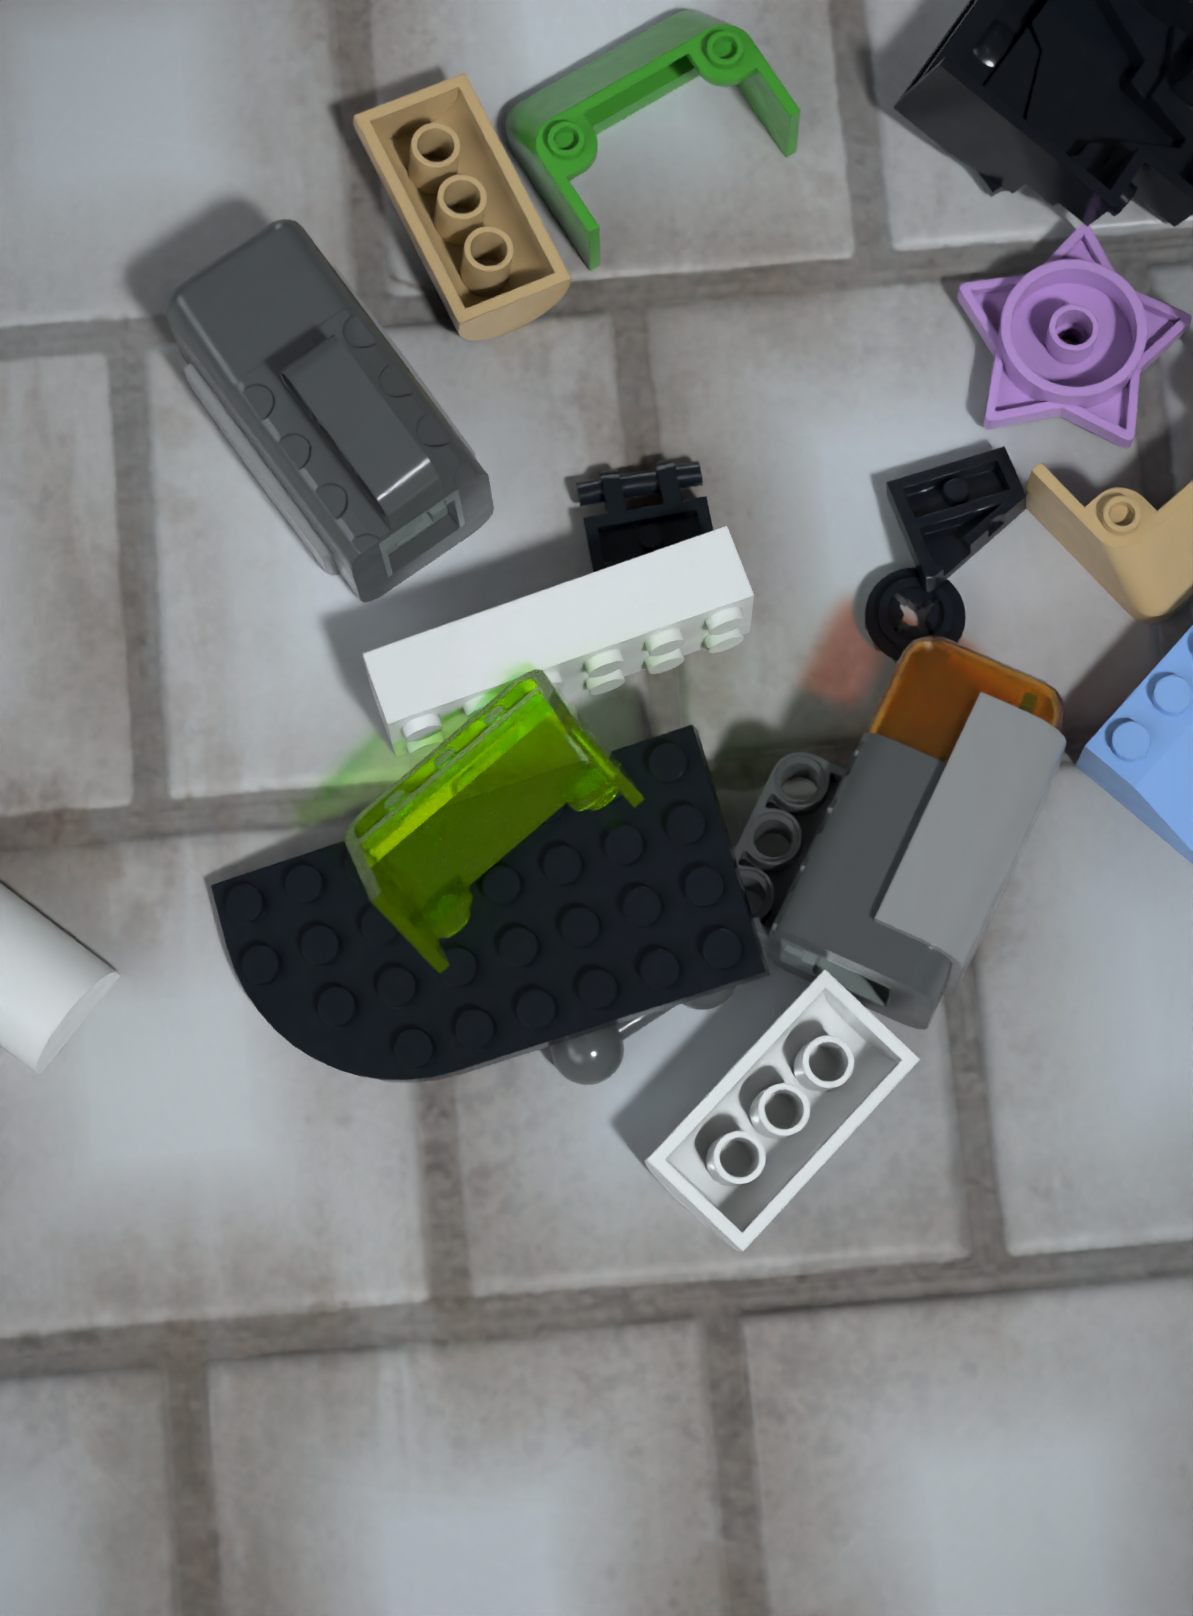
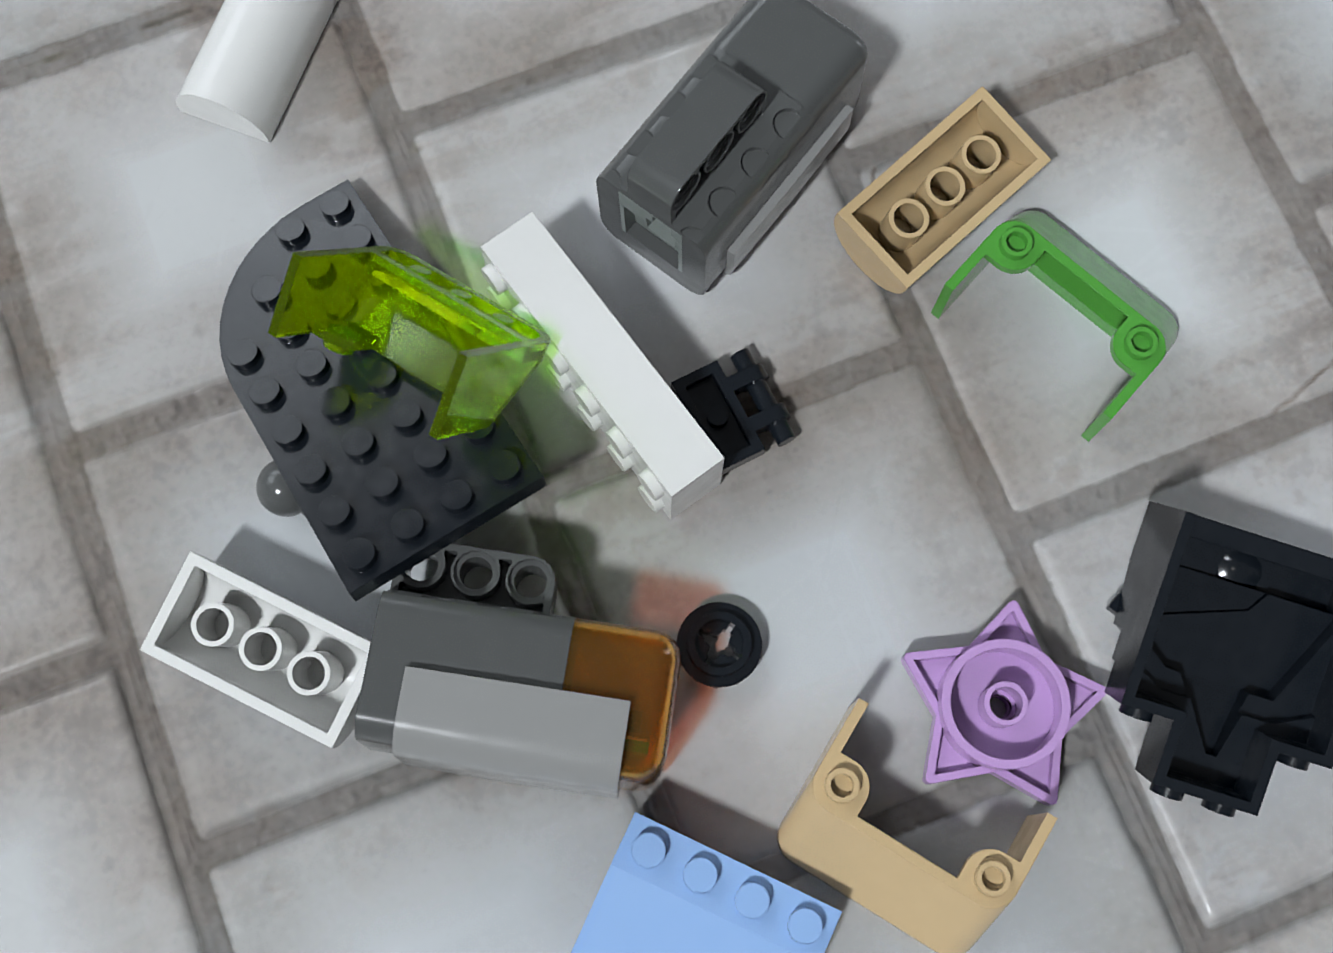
camera: 70 degrees right, 0 degrees up
(955, 511) = (817, 651): black wing -> none

